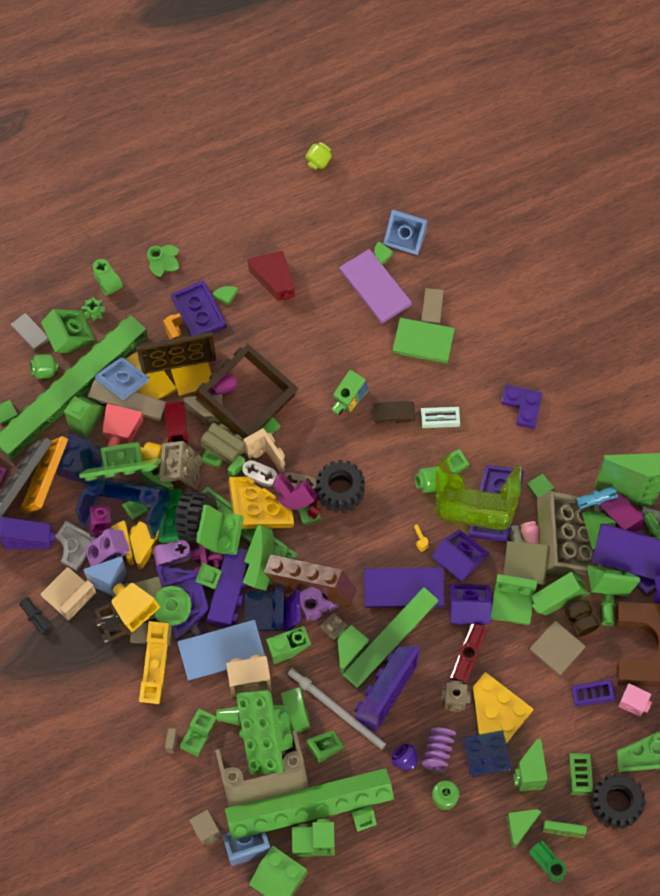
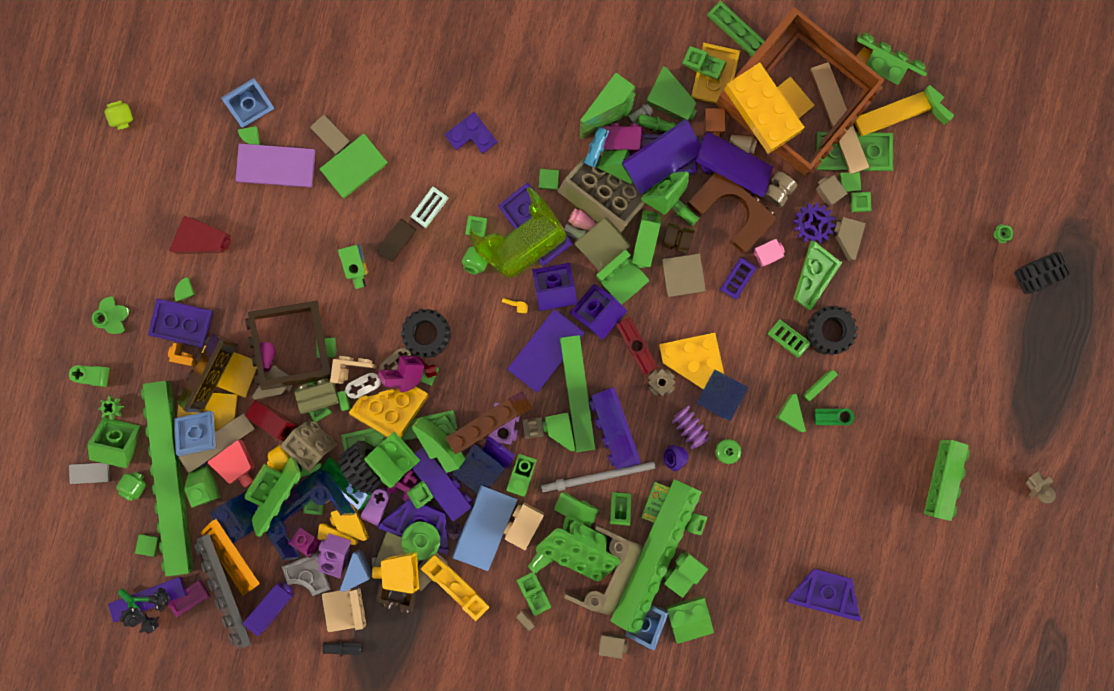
camera: 45 degrees left, 20 degrees up
(353, 769) = (655, 502): none -> bright green tile
(531, 770) = (760, 374): bright green slope -> none

